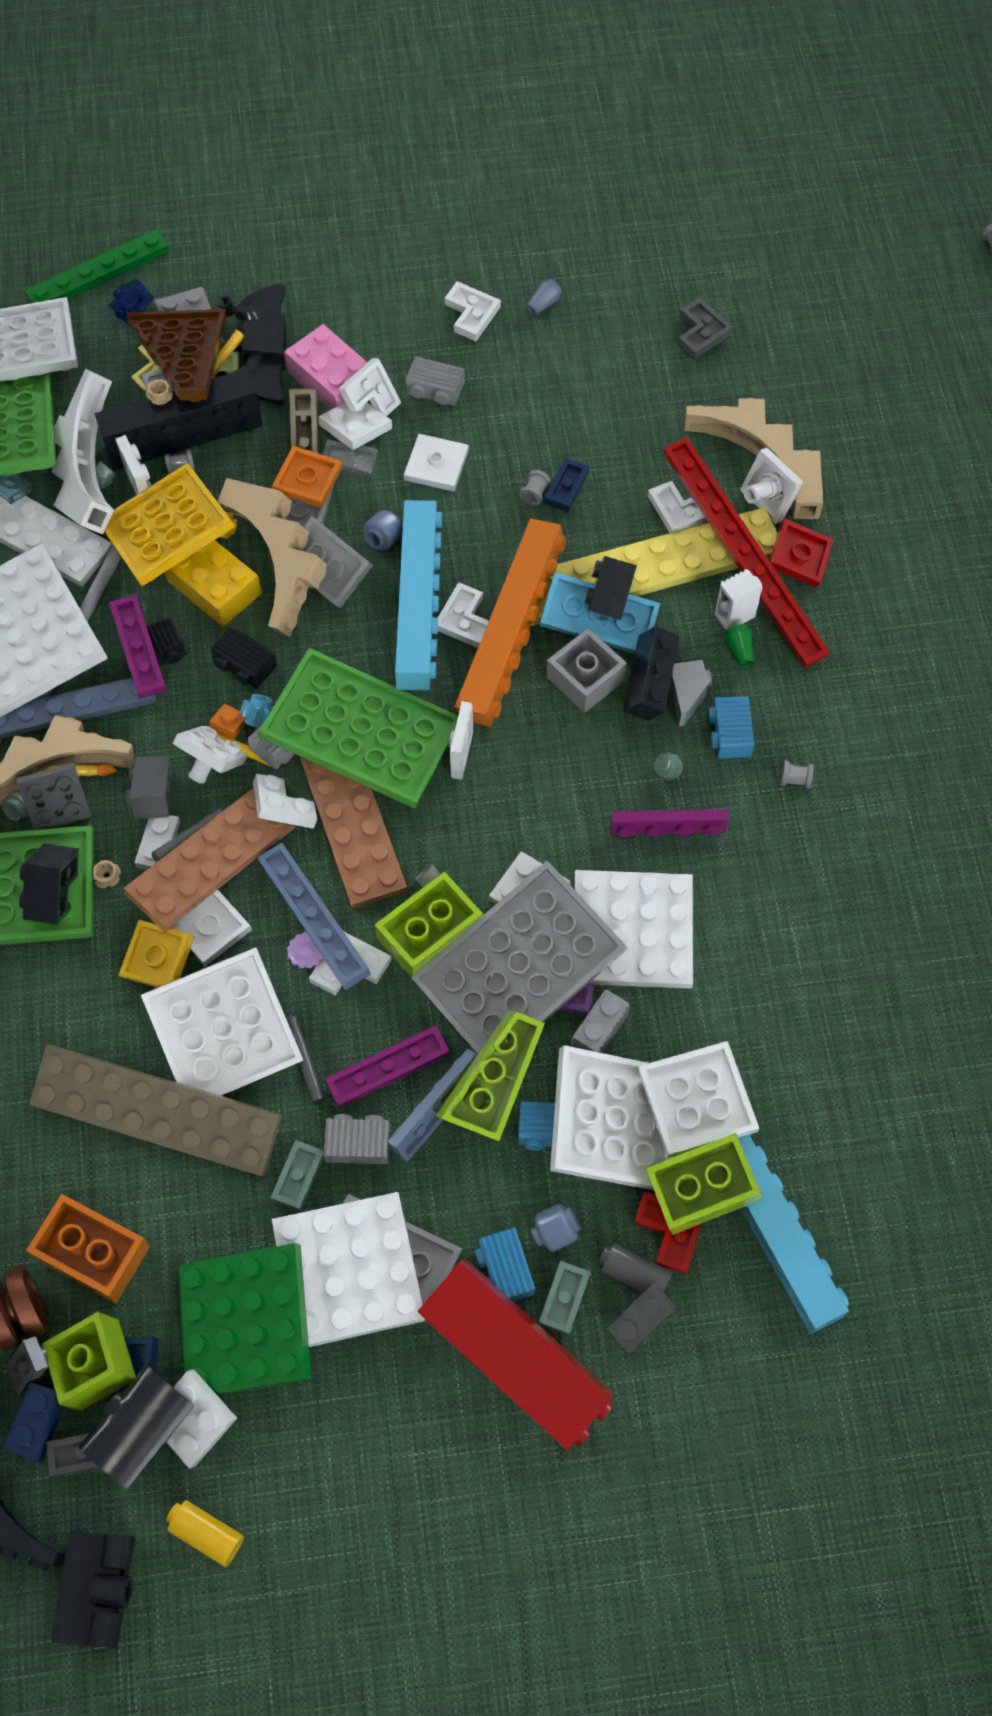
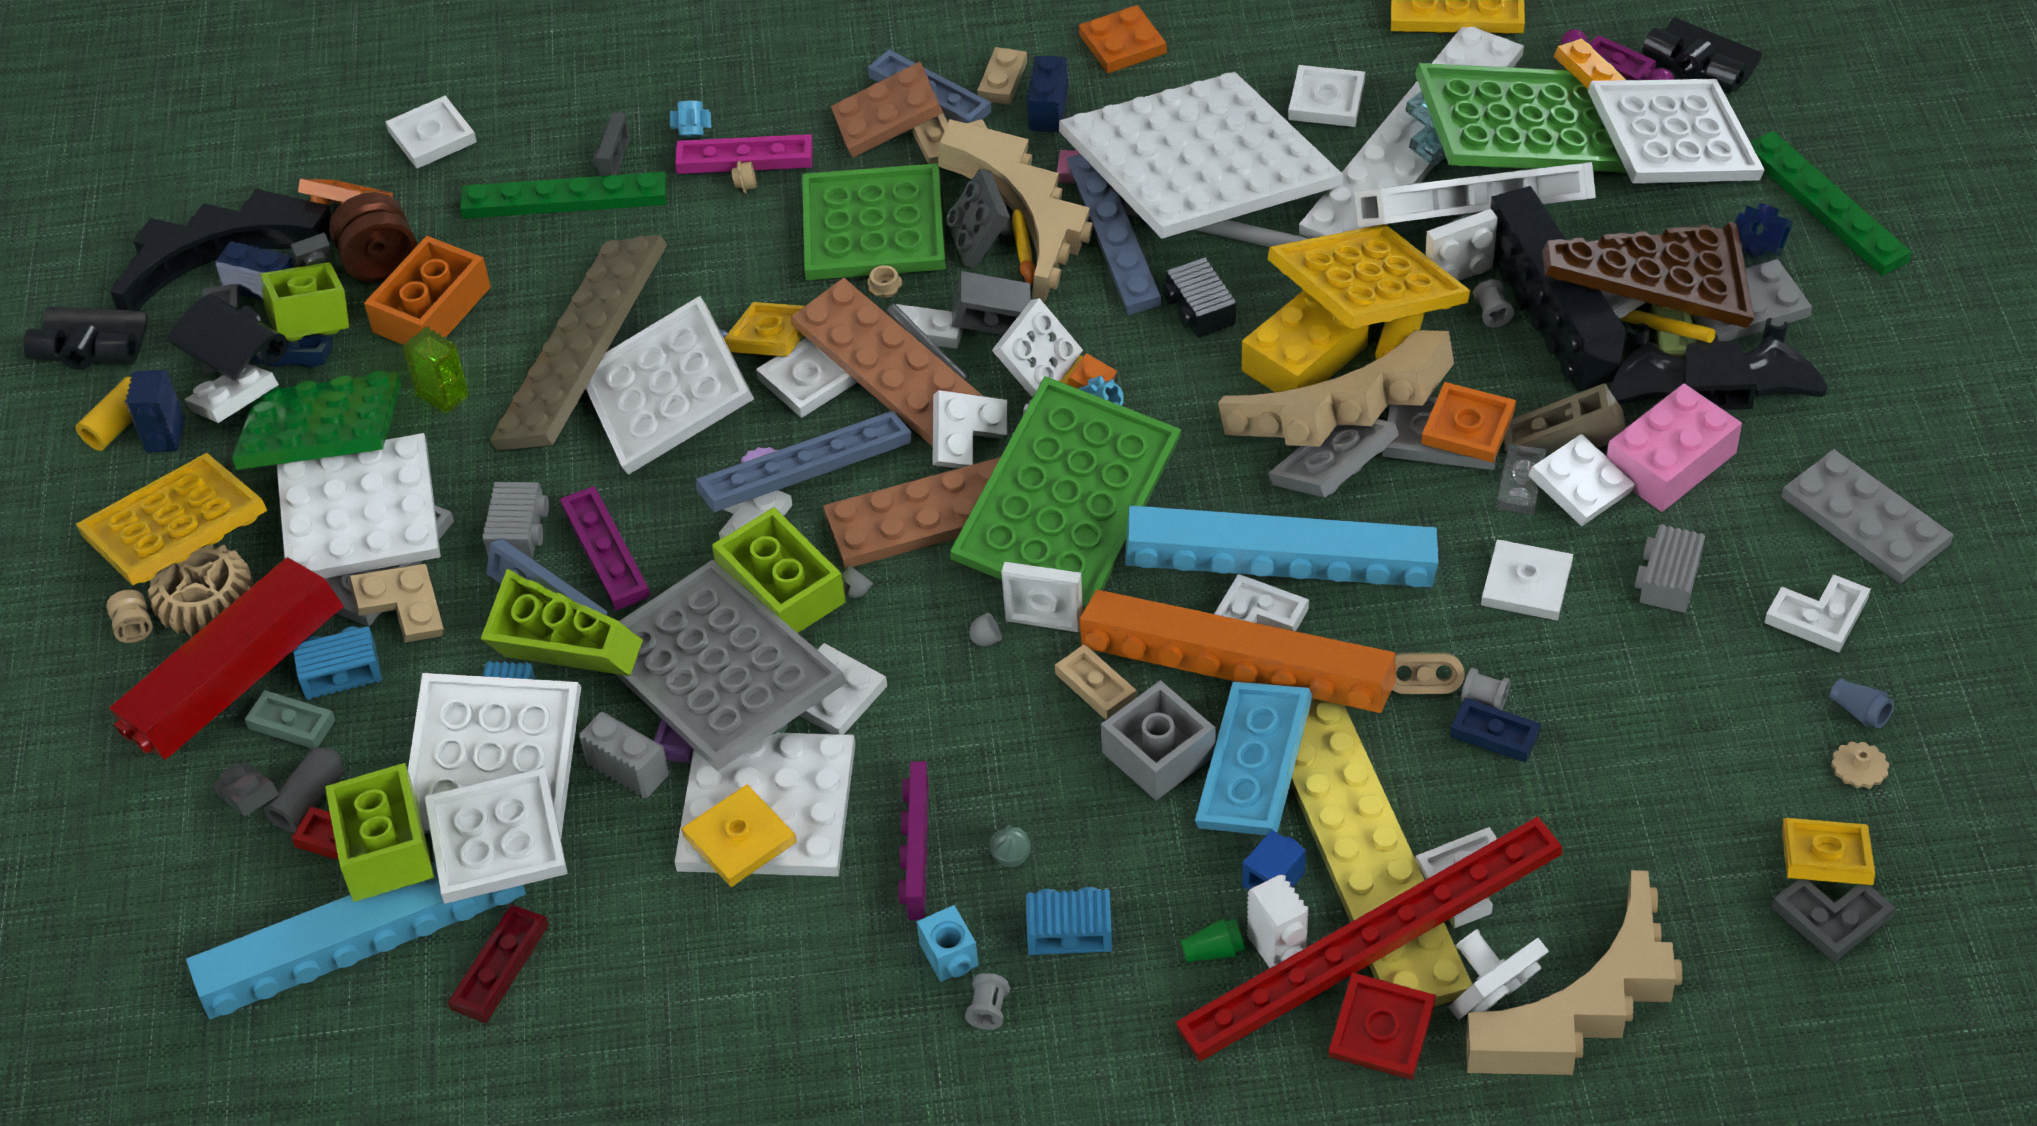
camera: 95 degrees right, 15 degrees down
(47, 882) = (857, 207): black brick -> none
(137, 646) = (1180, 265): magenta plate -> none
(159, 392) = (1563, 230): tan plate -> none
(189, 1224) = (436, 370): none -> clear neon green brick
(221, 1481) = (155, 410): none -> dark blue brick
(243, 657) = (1184, 383): black brick -> none
(297, 1175) = (481, 468): sand green plate -> none
(306, 1065) = (631, 474): dark grey bar -> none
(353, 1439) = (171, 518): none -> yellow plate
(370, 384) = (1638, 482): white plate -> none
(382, 530) = (1394, 508): sand blue head -> none
(387, 281) = (1867, 516): none -> light grey plate
(414, 1415) = (199, 588): none -> tan gear
(439, 1216) = (403, 590): none -> tan plate
(454, 1463) = (129, 616): none -> tan wheel
(478, 788) = (985, 631): none -> light grey hinge
(519, 513) = (1423, 673): none -> tan plate
(526, 715) = (1095, 681): none -> tan plate
(556, 1227) = (373, 708): sand blue head -> none
(586, 307) = (1860, 765): none -> tan piece
(611, 587) = (1283, 746): black brick -> none
(651, 673) = (1149, 813): black brick -> none
(658, 324) = (1828, 851): none -> yellow plate
(677, 935) = (739, 835): none -> yellow plate
(682, 608) = (1274, 857): none -> blue brick
(688, 688) = (1131, 868): light grey slope -> none
(747, 807) = (943, 930): none -> medium azure brick
(786, 1103) = (498, 963): none -> dark red tile

